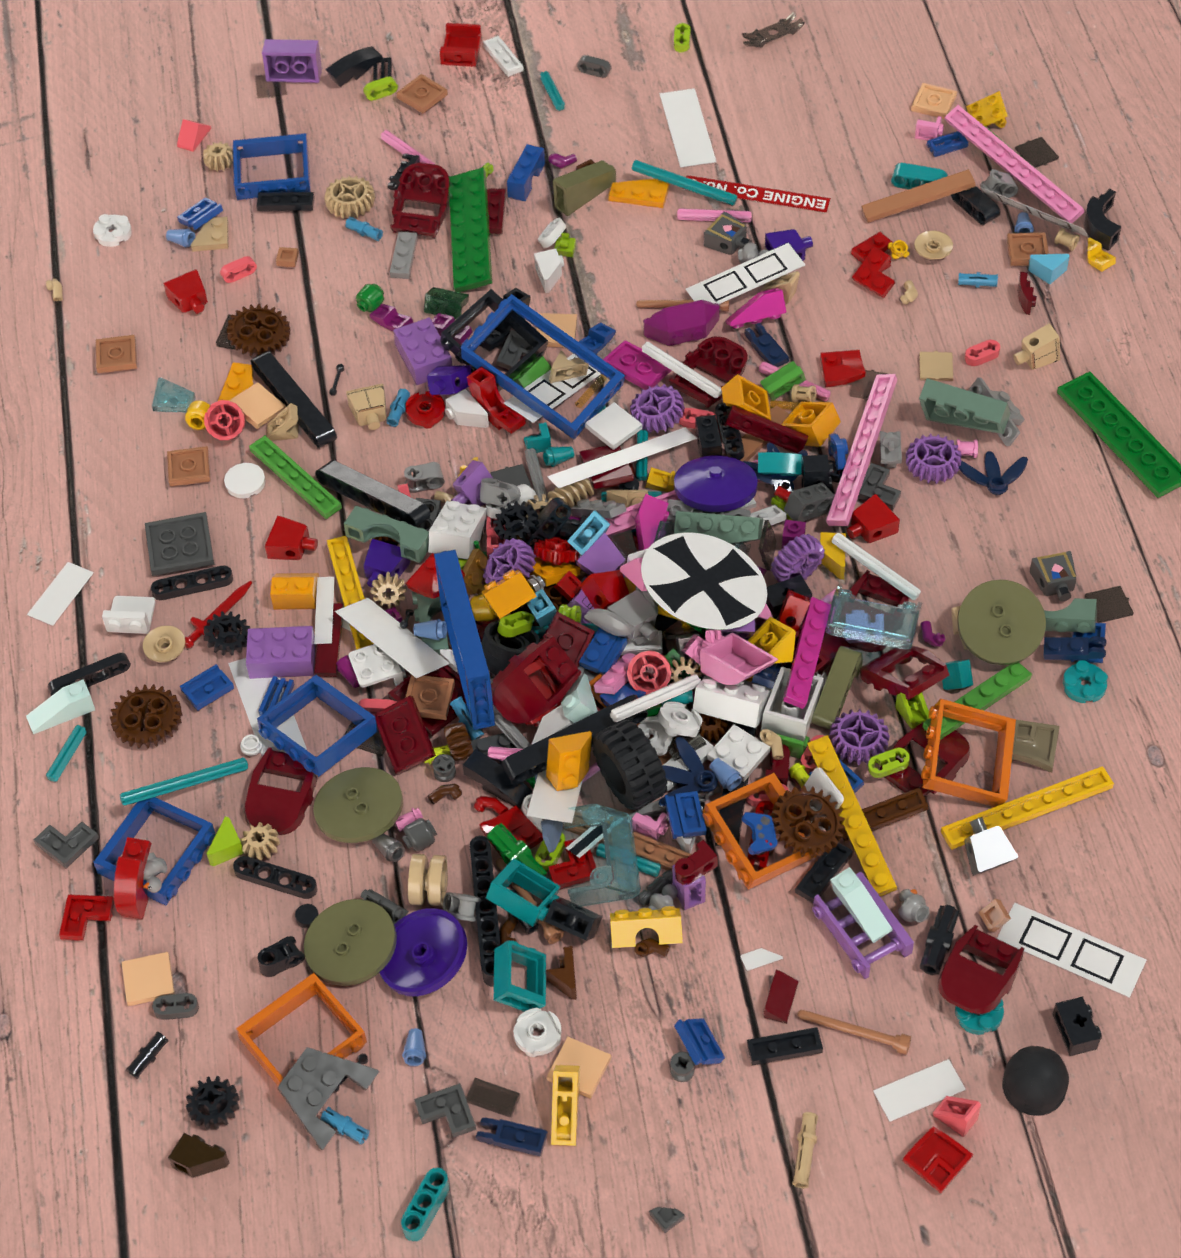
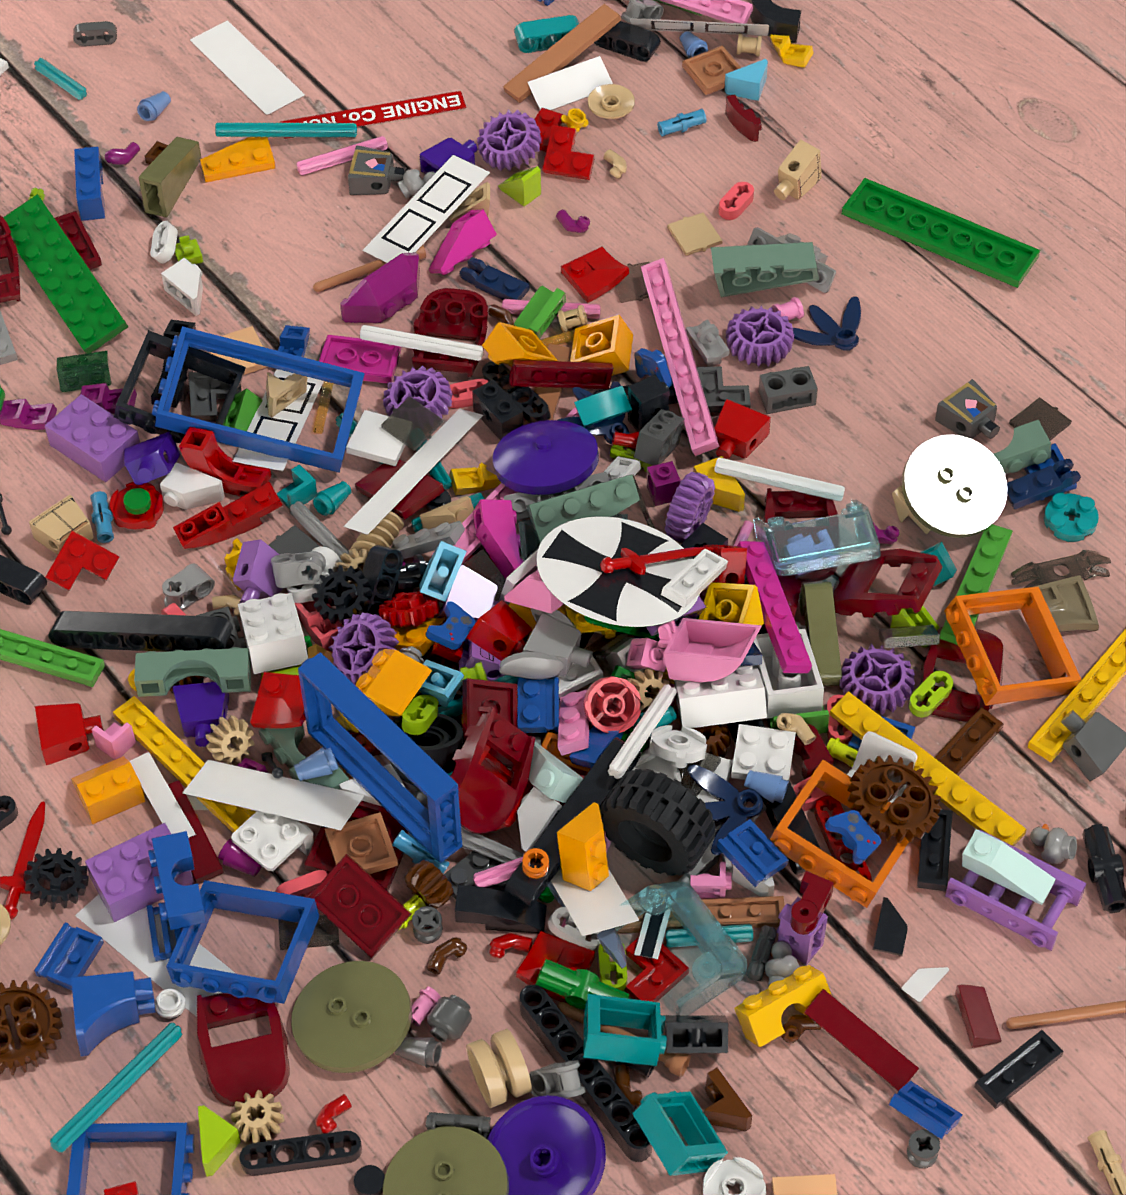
camera: 30 degrees left, 0 degrees up
(206, 727) = (107, 1005): none -> blue hips
(297, 649) = (182, 903): none -> blue arch
(309, 859) = (330, 1111): none -> red arm
(318, 560) = (114, 740): none -> bright pink panel
(365, 426) = (78, 554): none -> red plate
(424, 405) = (137, 501): none -> green tile
(475, 443) = (226, 522): none -> red slope
(533, 754) = (535, 872): none -> orange bush
(574, 576) = (454, 630): none -> blue piece
(603, 132) = (153, 106): none -> medium blue cone
(639, 424) = (412, 423): none -> clear smoke piece
(683, 974) = (861, 1040): none -> dark red tile
(718, 578) = (637, 563): none -> red sword
(756, 373) = (501, 314): none -> reddish brown arm
(756, 607) = (694, 578): none -> white tile
(756, 912) = (891, 930): none -> black slope
(829, 285) = (523, 185): none -> lime slope
(836, 242) = (509, 140): none -> medium lavender gear
(848, 326) = (579, 226): none -> magenta arm
(898, 715) = (909, 636): none -> clear smoke tile
(911, 221) = (569, 84): none -> white sticker
(928, 505) = (787, 389): none -> dark grey brick
(1066, 719) = (1044, 571): none -> clear smoke piece

